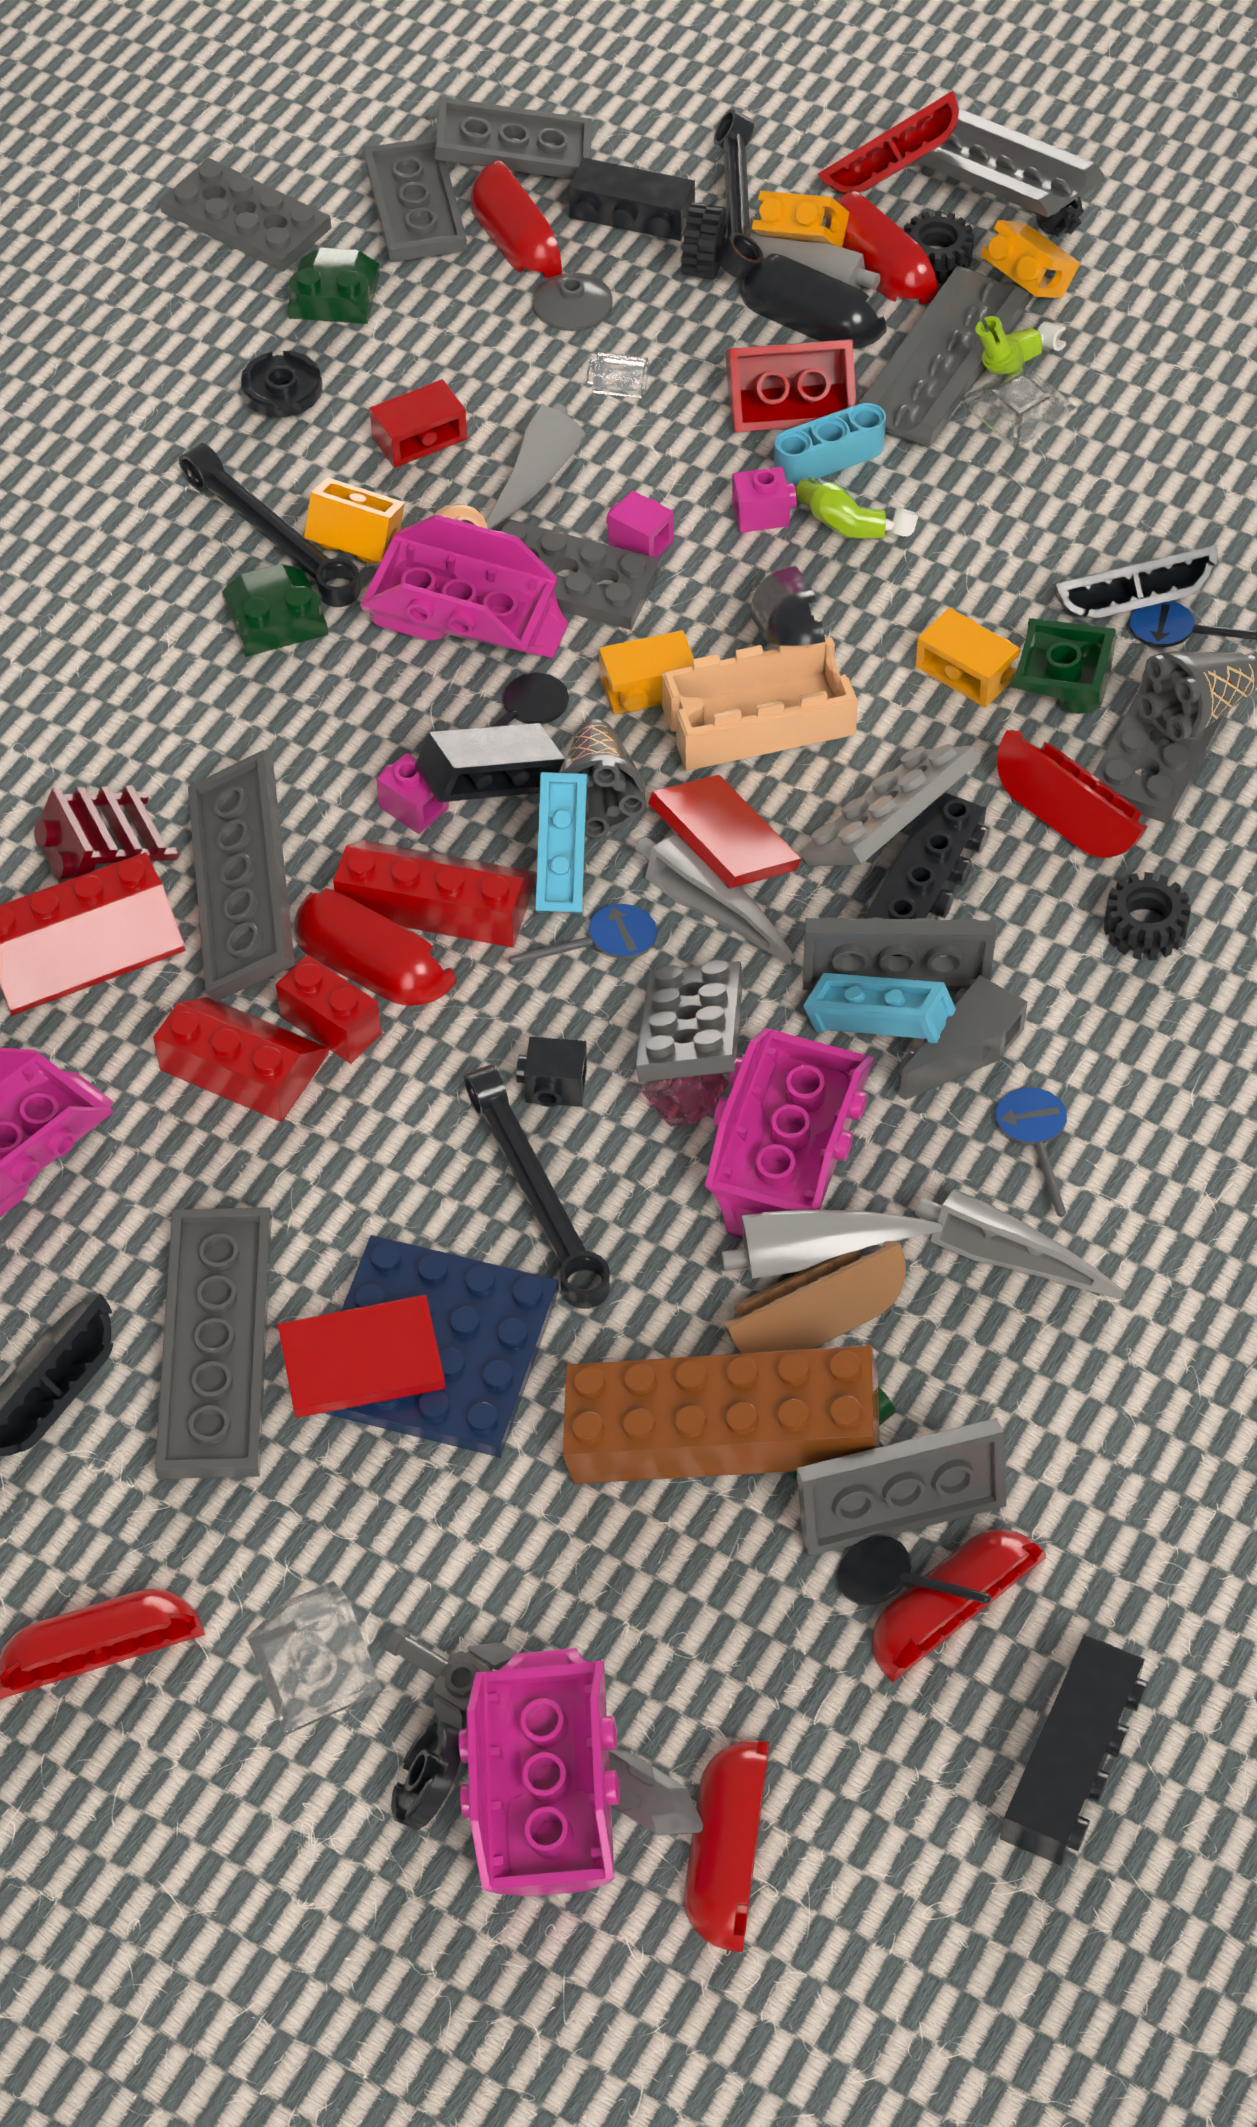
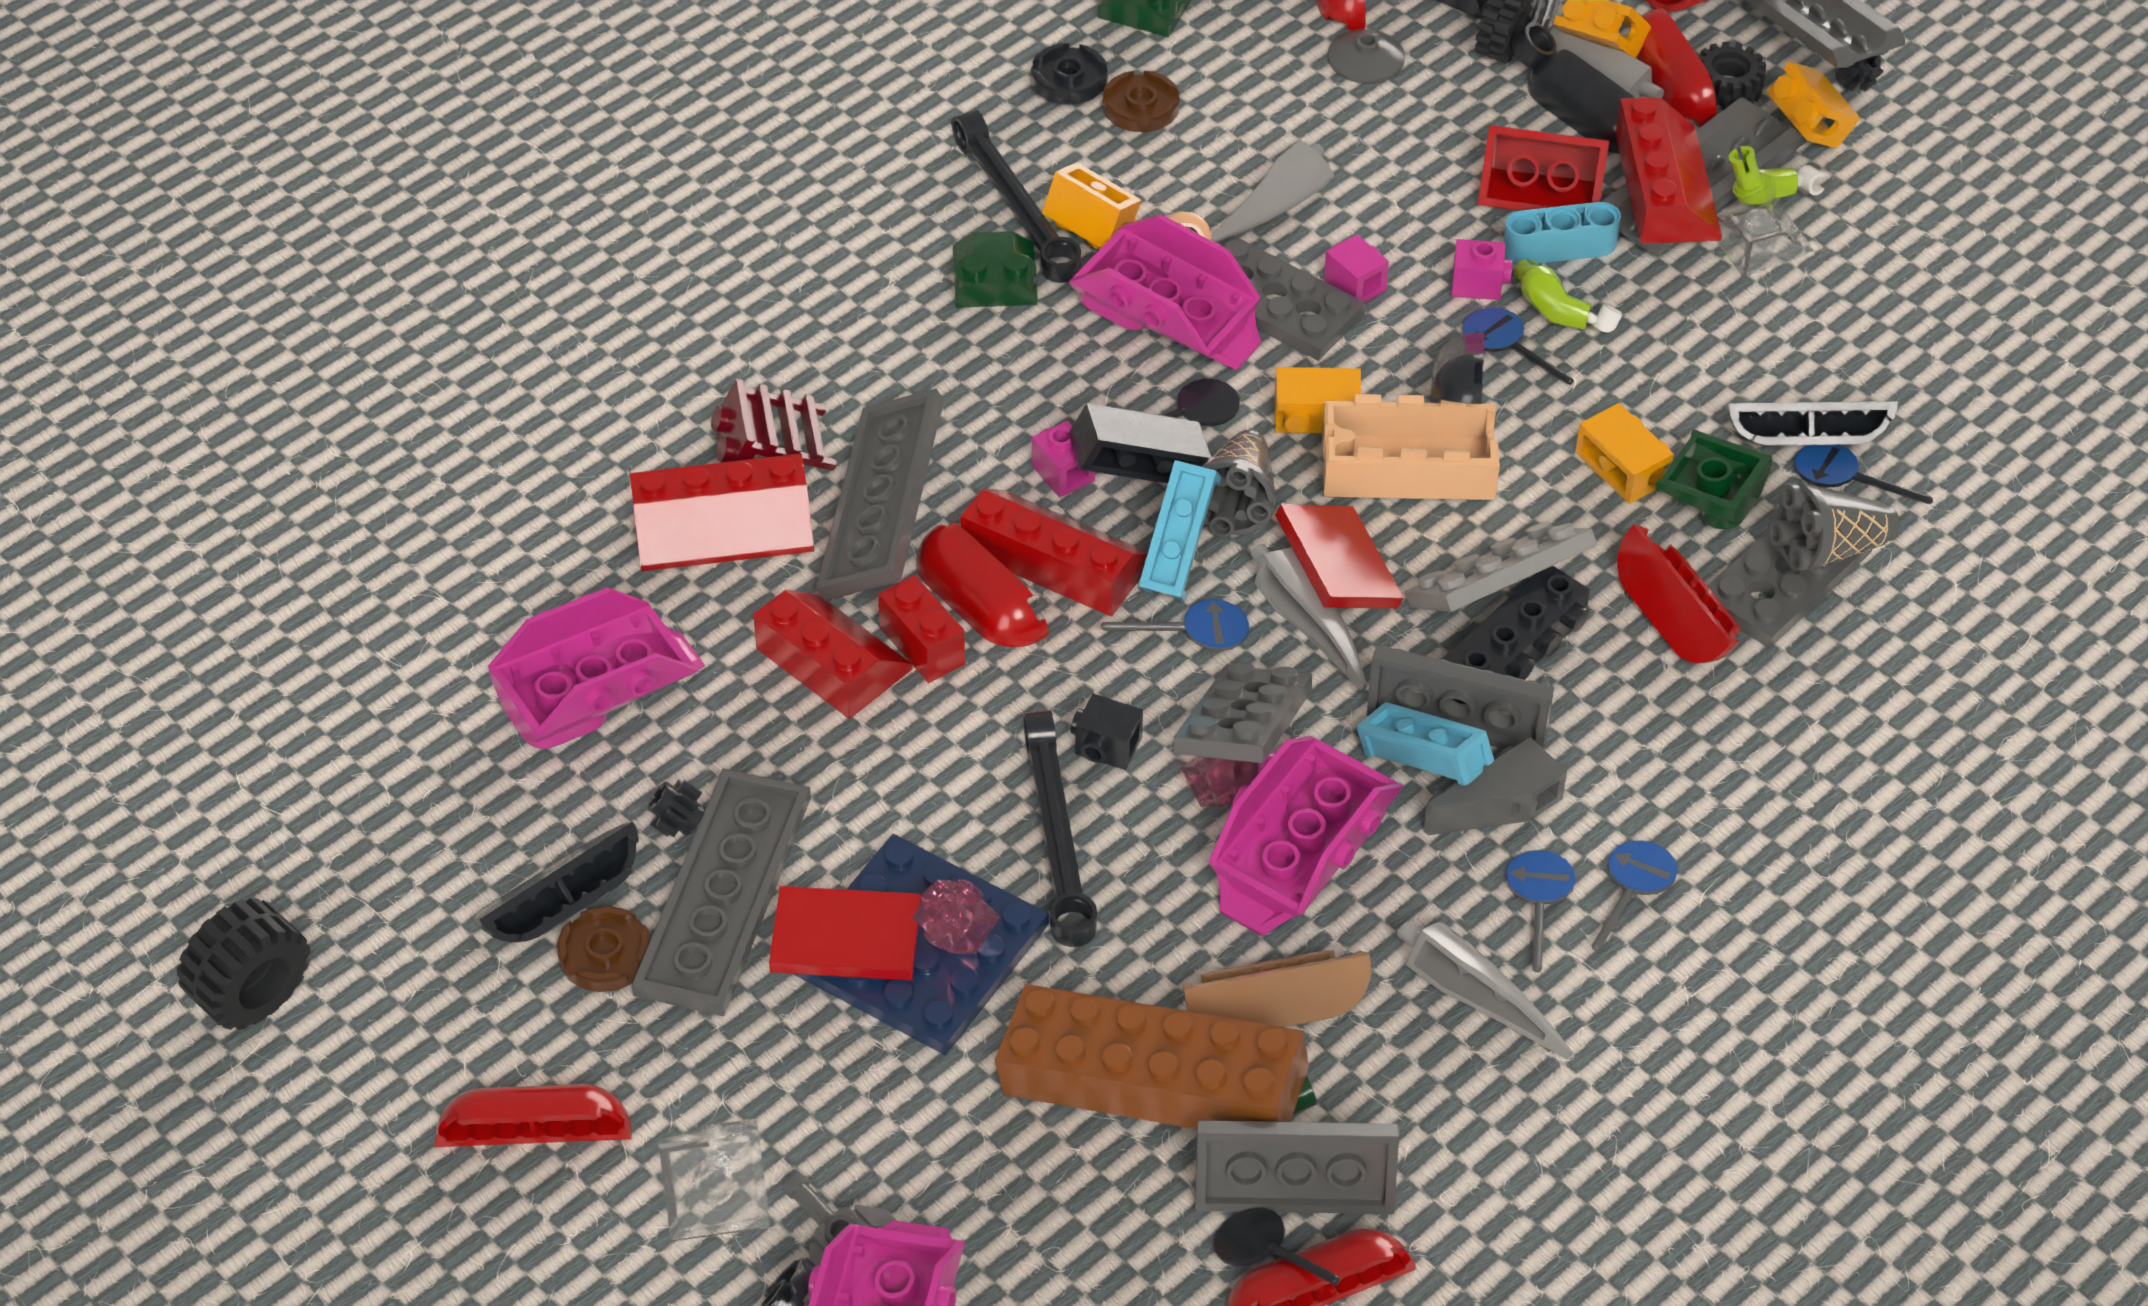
camera: 15 degrees right, 5 degrees down
(109, 1436) = (602, 948): none -> reddish brown tile
(137, 1265) = (676, 808): none -> black gear
(352, 392) = (1141, 101): none -> reddish brown tile
(418, 423) = (1182, 134): red brick -> none
(471, 1311) = (955, 916): none -> clear pink brick
(618, 374) = (1383, 130): clear brick -> none
(802, 1238) = (1283, 929): light grey piece -> none
(809, 558) = (1505, 331): none -> blue piece
(912, 361) = (1665, 173): none -> red slope
(1124, 1083) = (1639, 869): none -> blue piece
(1151, 896) = (1715, 704): black tyre -> none

